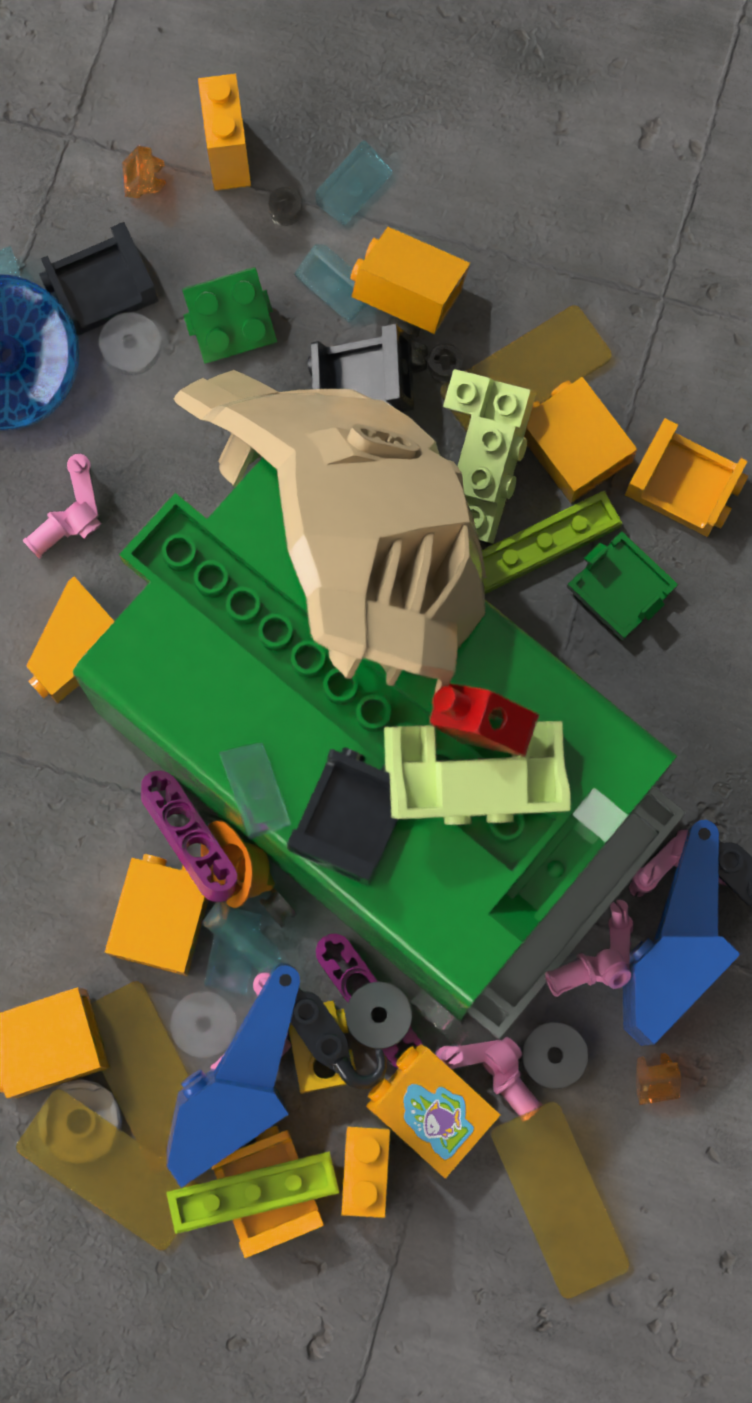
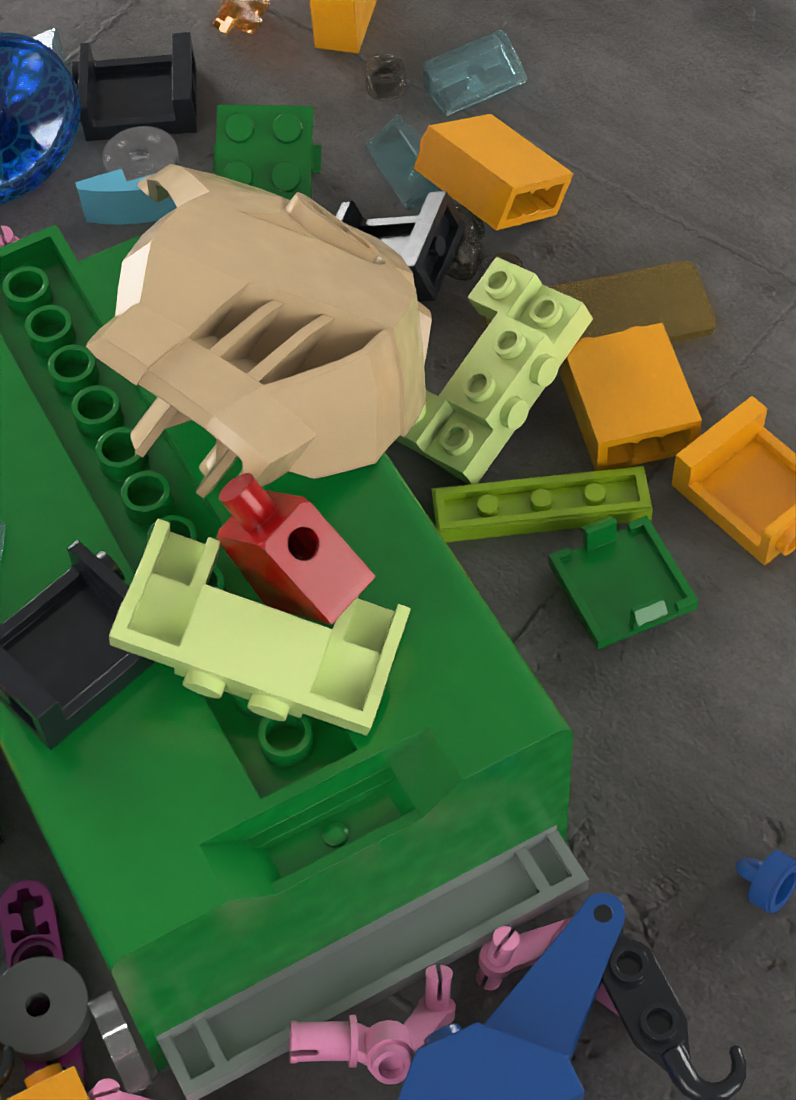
camera: 25 degrees right, 20 degrees down
(132, 390) = (118, 202): none -> medium azure slope

